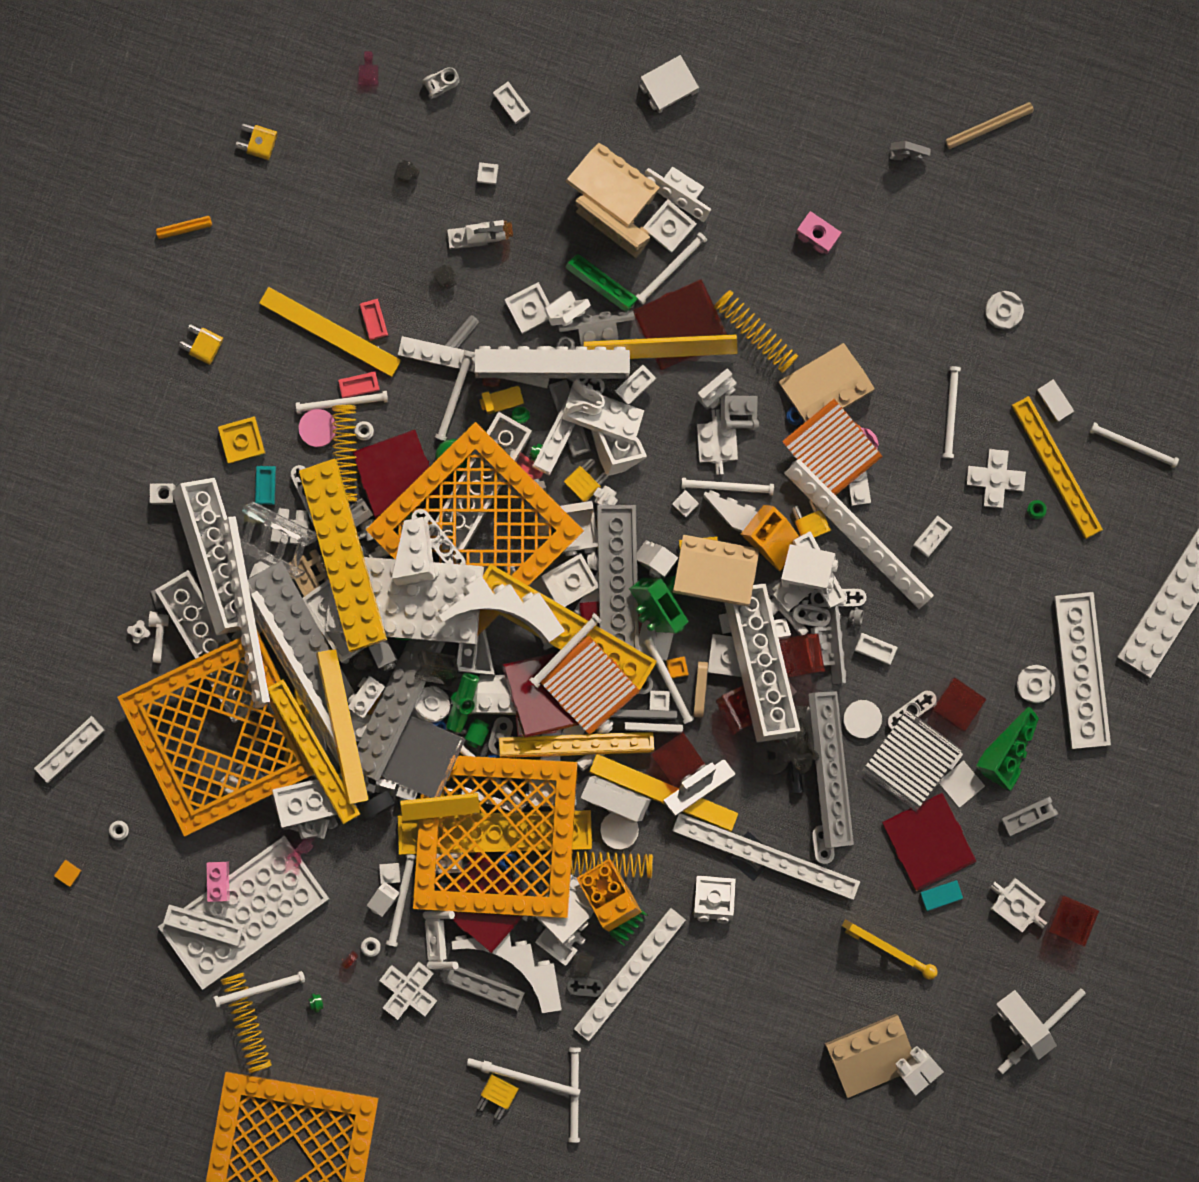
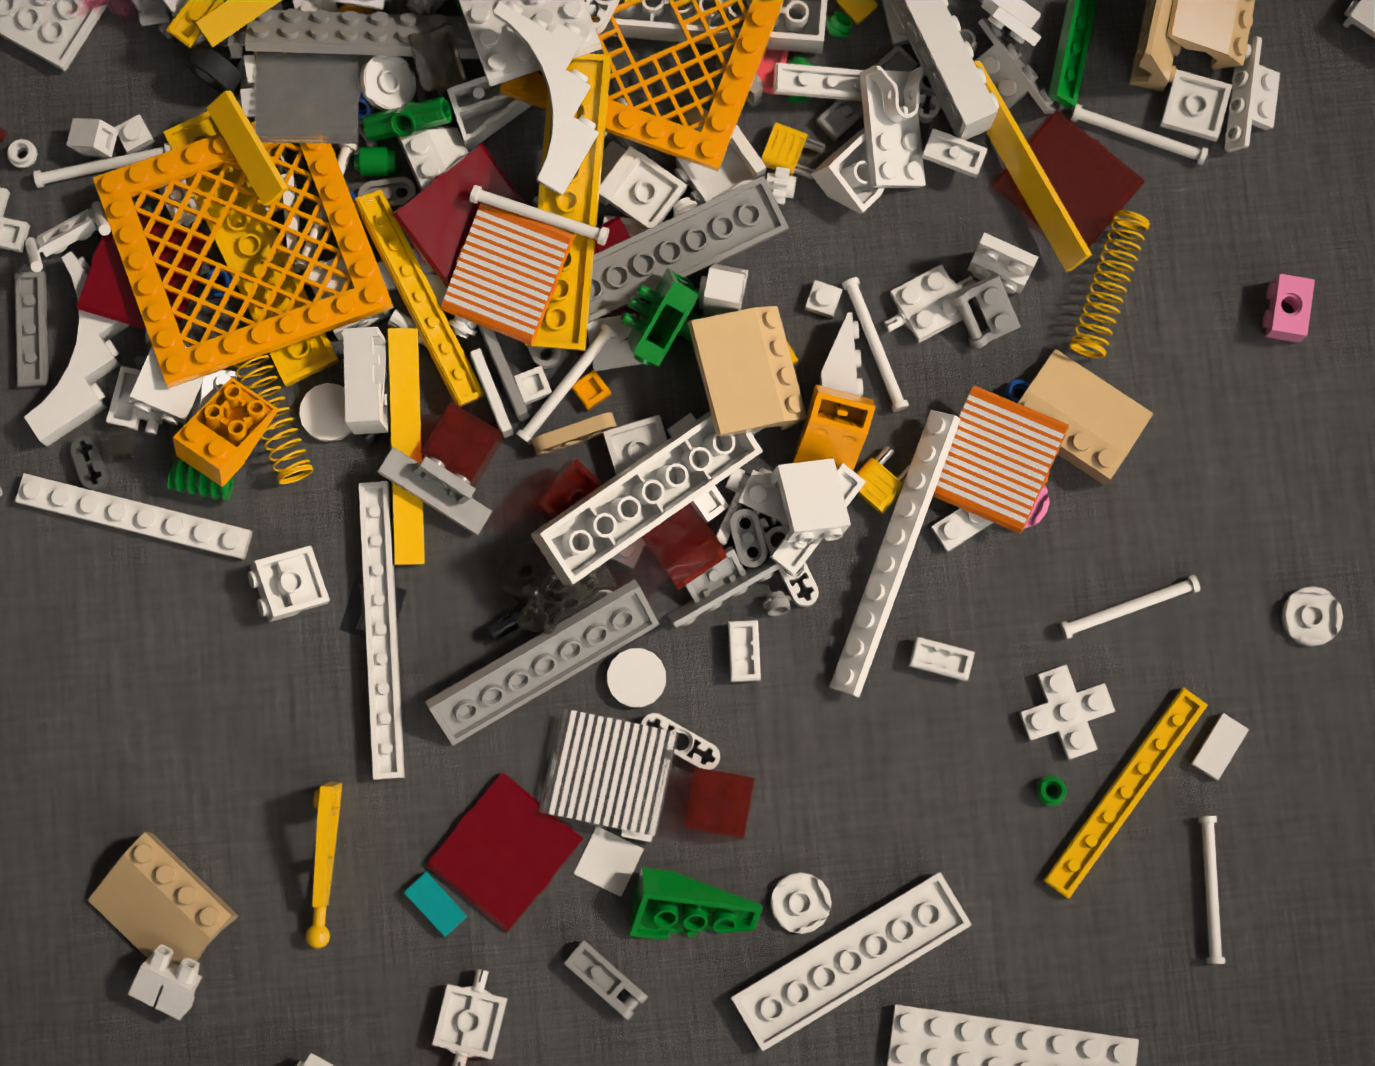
camera: 65 degrees right, 5 degrees down
(819, 846) = (421, 697): white plate -> none

